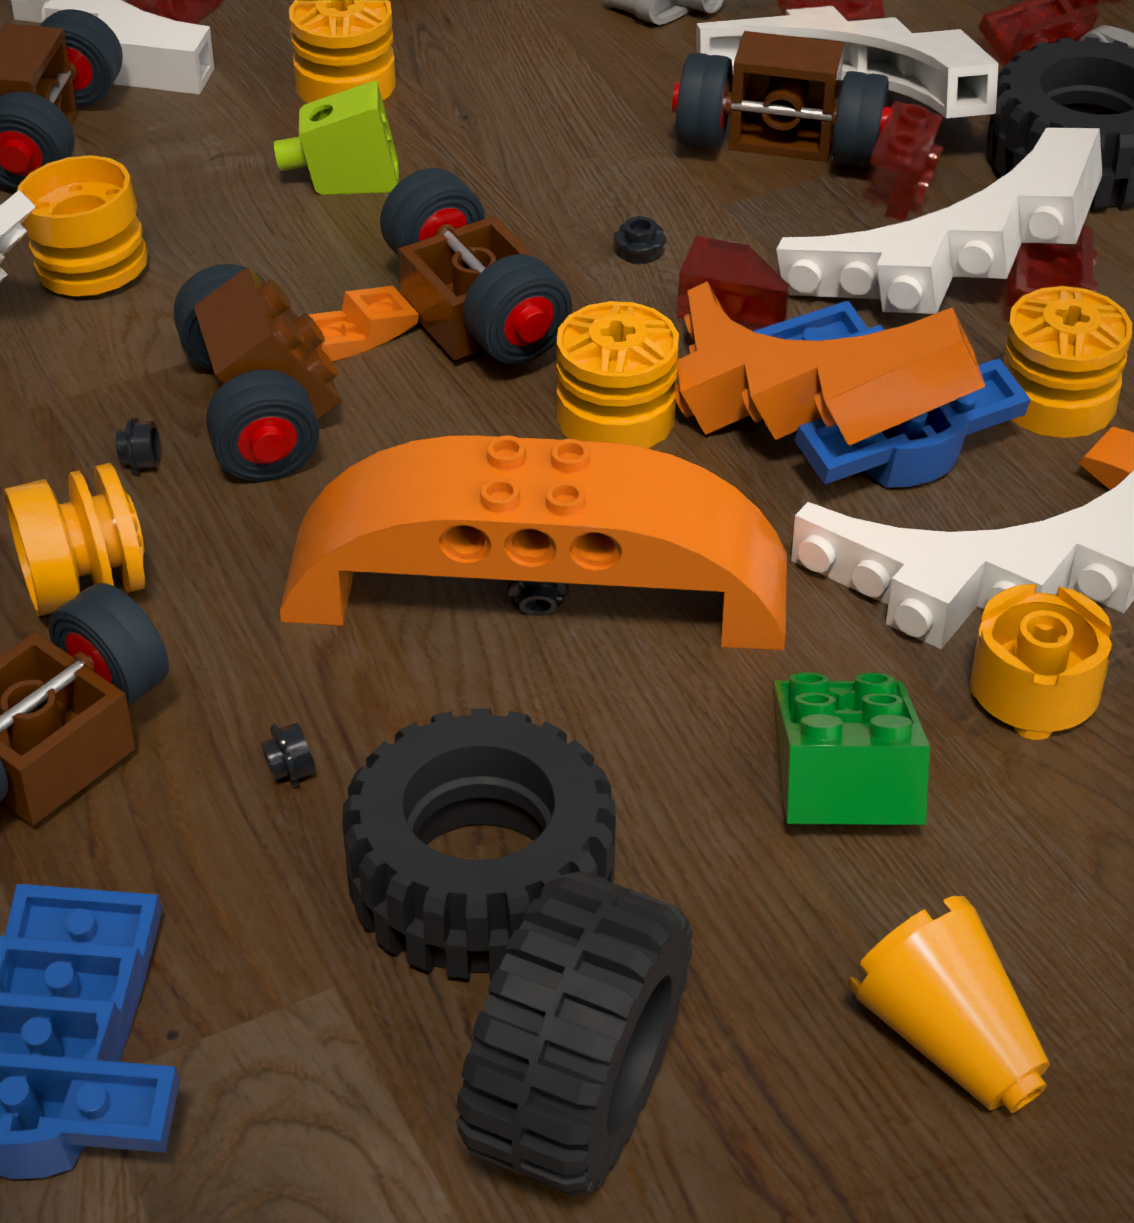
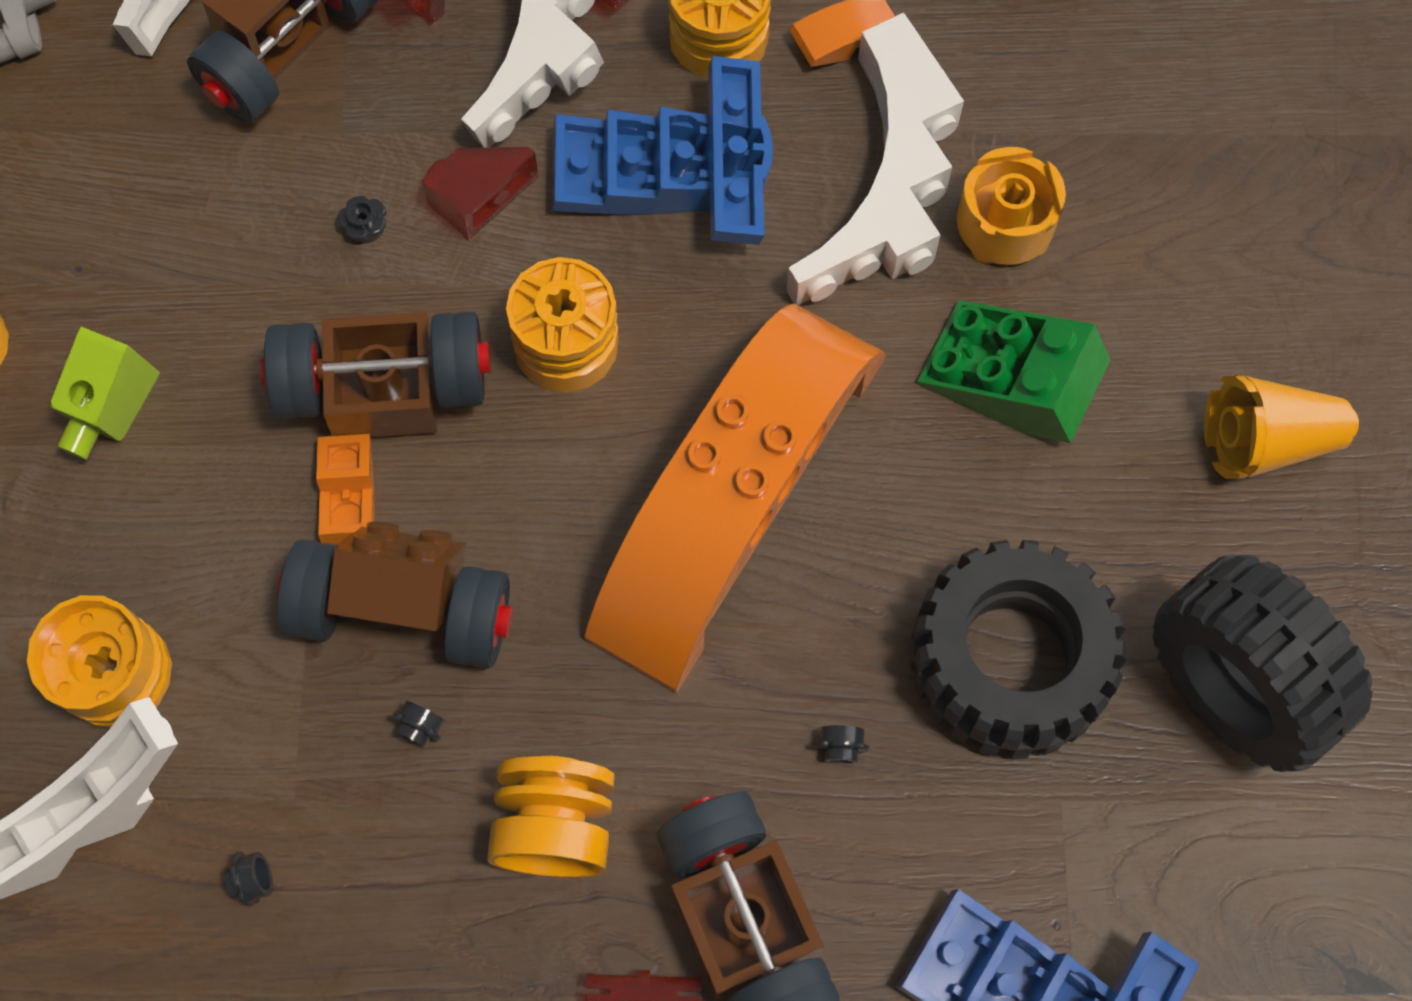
camera: 65 degrees left, 25 degrees up
(848, 382) = (730, 161): orange arch -> none

